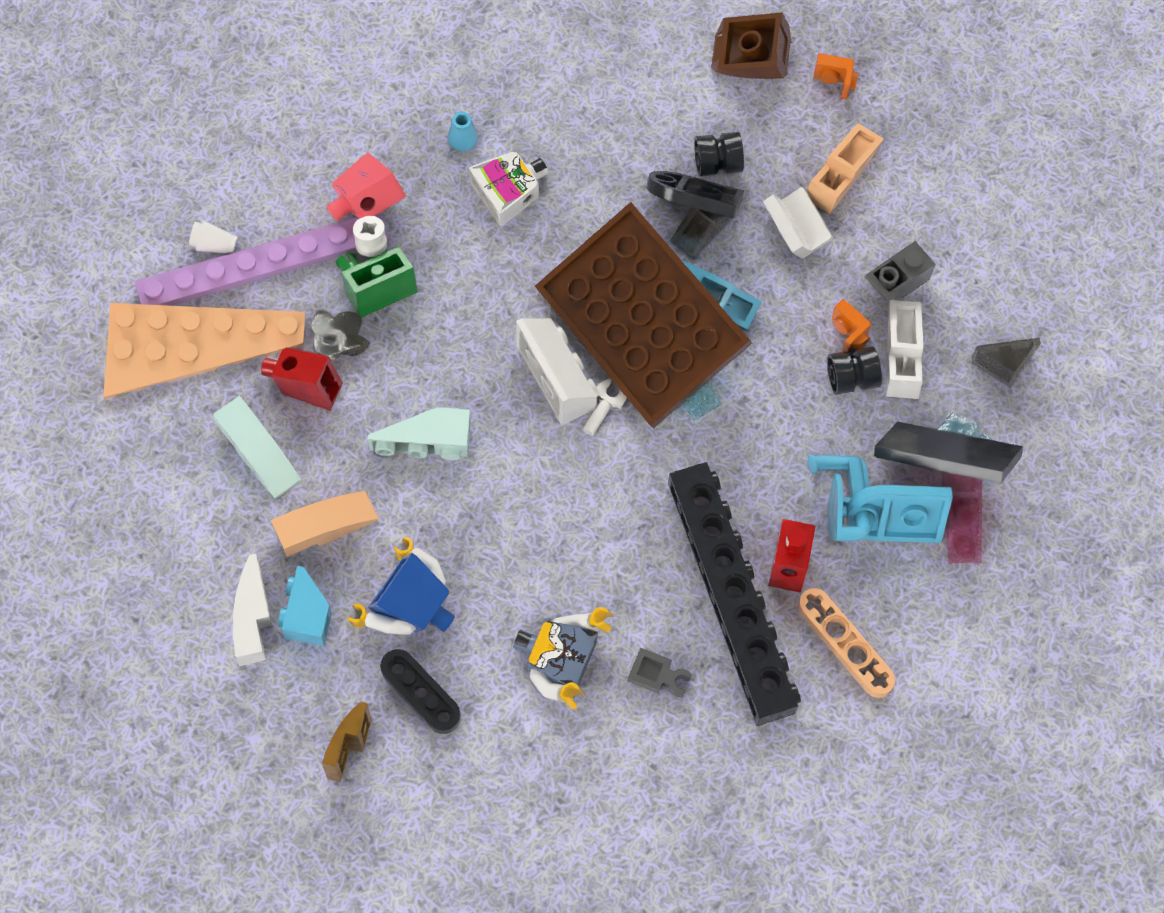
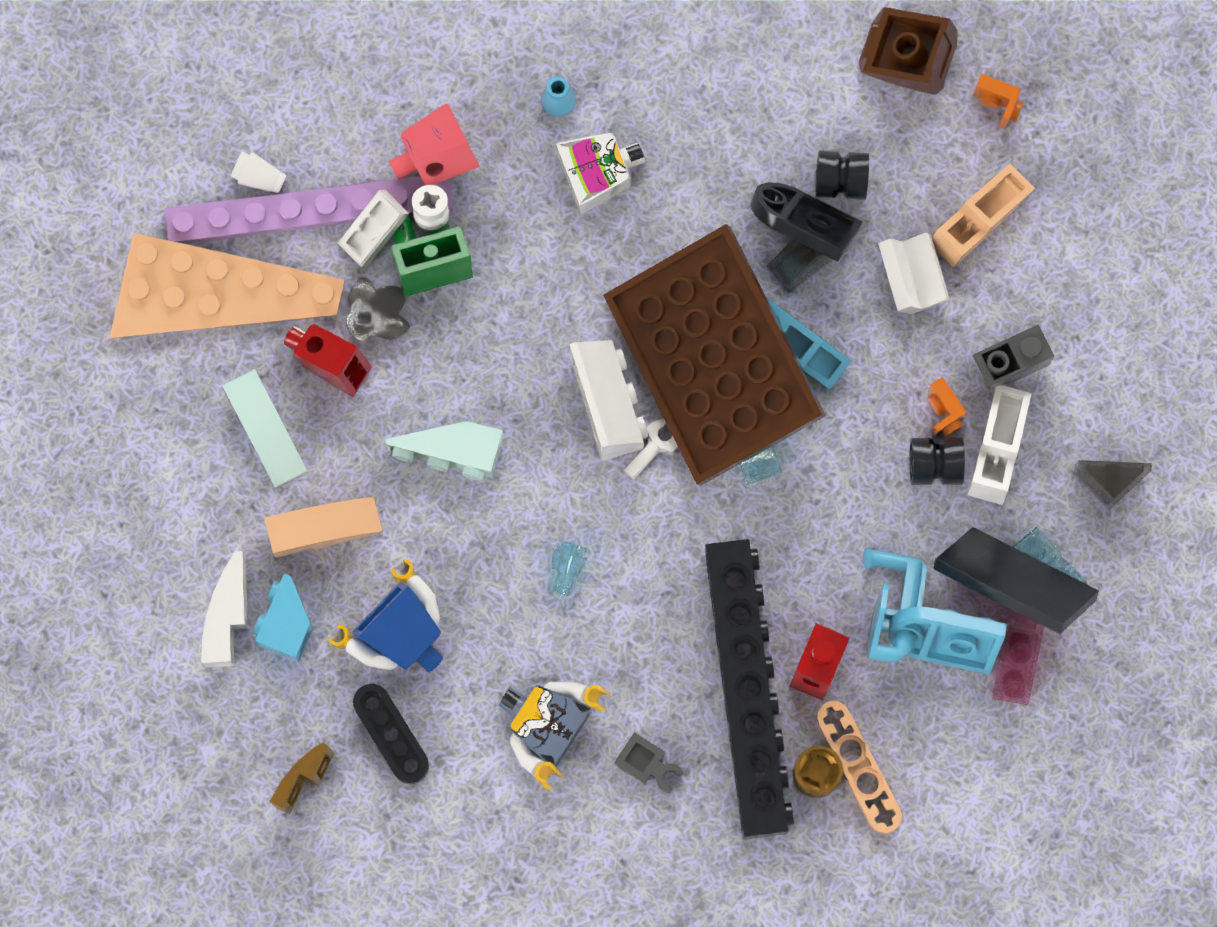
camera: 15 degrees right, 10 degrees up
(322, 264) = (373, 228): none -> white plate
(549, 517) = (566, 566): none -> clear light blue cone
(811, 650) = (817, 771): none -> pearl gold wheel

